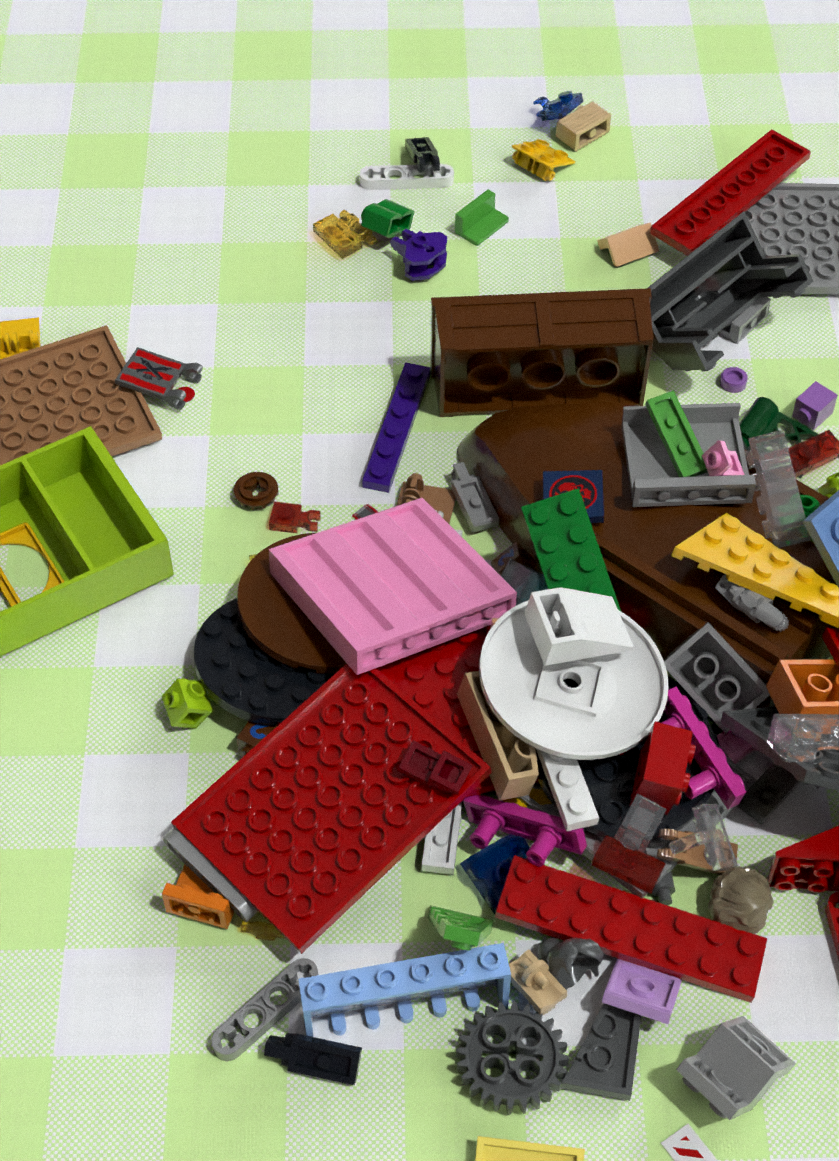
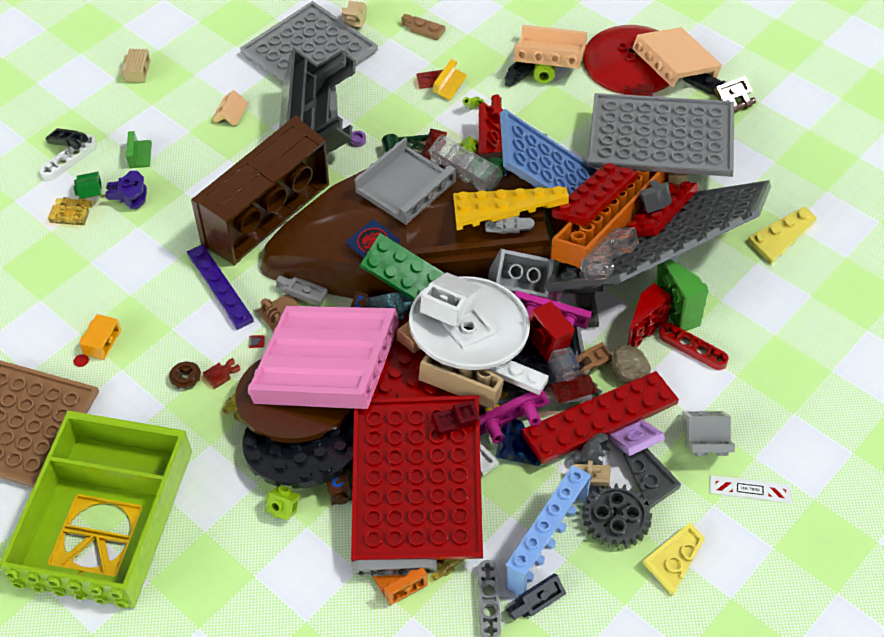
camera: 45 degrees left, 0 degrees up
(157, 375) = (58, 361): dark grey flag -> none
(223, 383) = (100, 336): none -> light orange brick
(461, 928) = (540, 478): bright green wing -> none
(540, 158) = (126, 94): yellow hinge -> none
(560, 107) = (113, 64): clear blue plate -> none
(676, 434) = (395, 173): bright green plate -> none
(712, 834) = (599, 347): clear plate -> none
(721, 461) = (428, 170): bright pink bracket -> none
(730, 192) = (256, 48): red plate -> none
(814, 405) = (410, 122): medium lavender brick -> none

